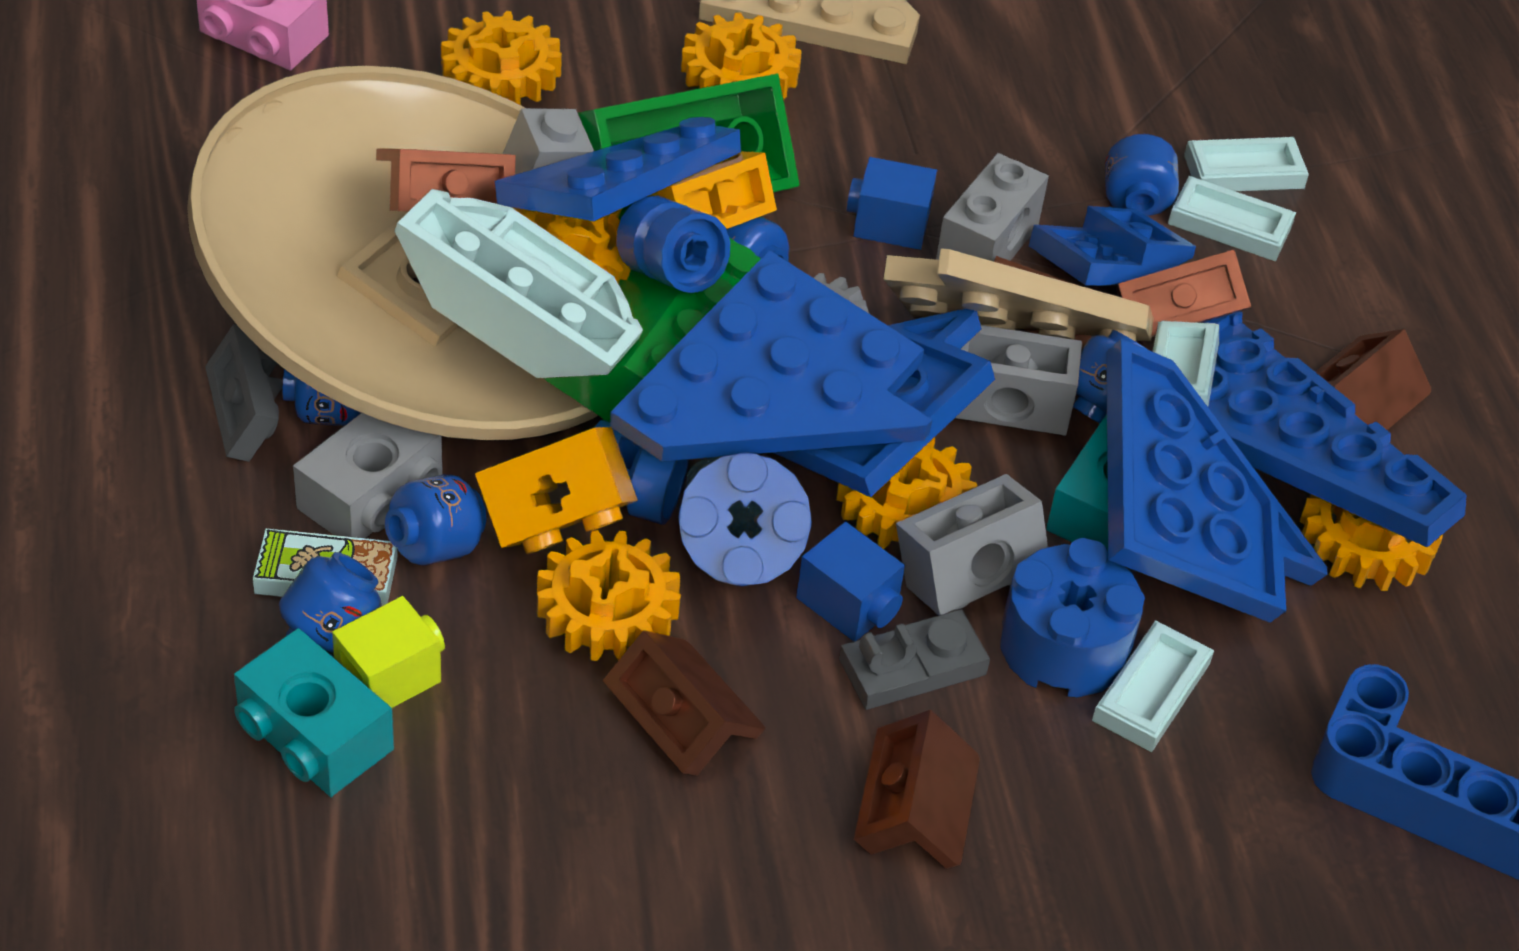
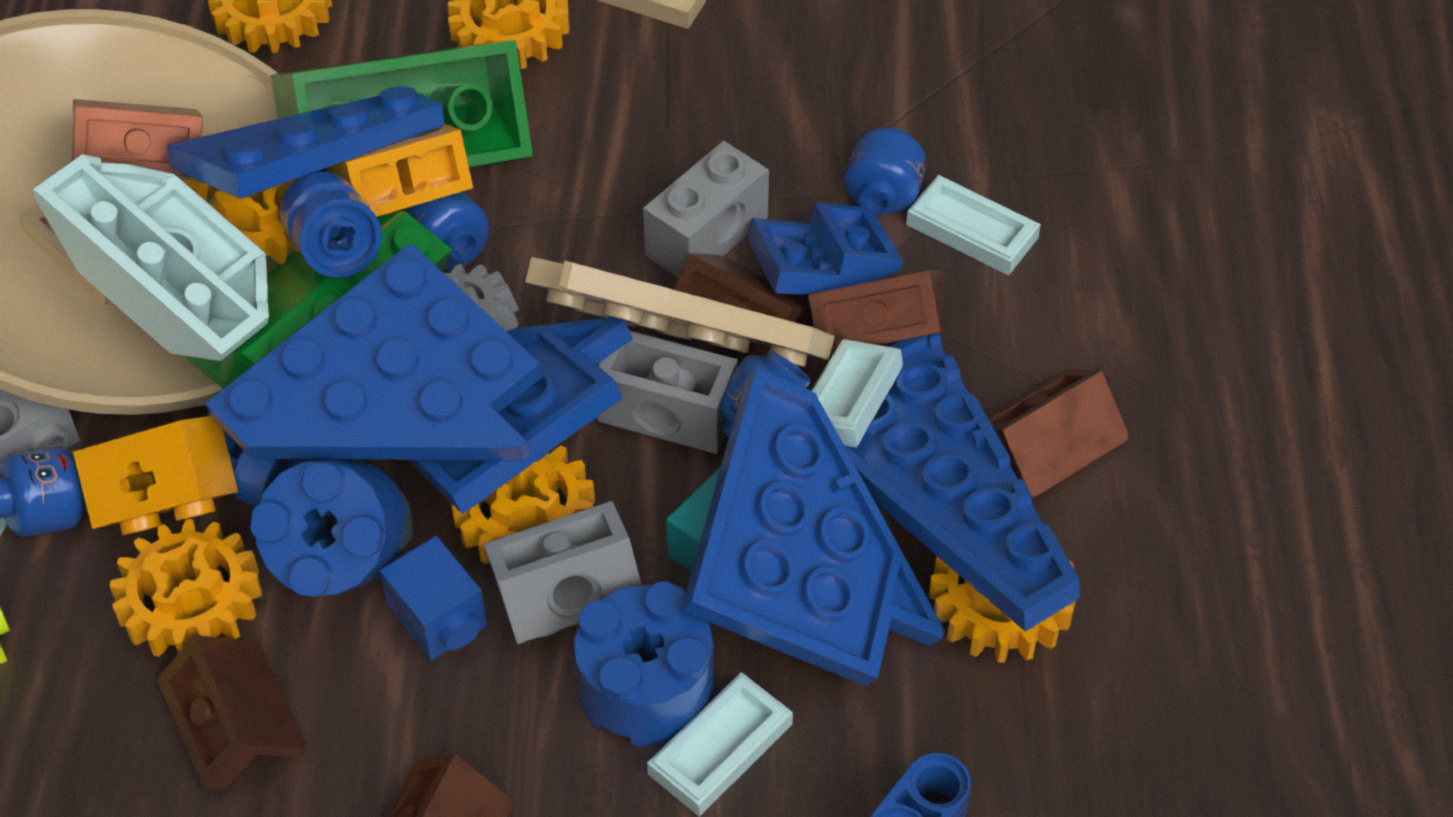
camera: 15 degrees right, 5 degrees up
(546, 138) = (247, 98): light grey brick -> none
(892, 202) = (613, 183): blue brick -> none
(914, 659) = (480, 688): dark grey plate -> none
(1248, 163) = (1009, 164): light aqua tile -> none

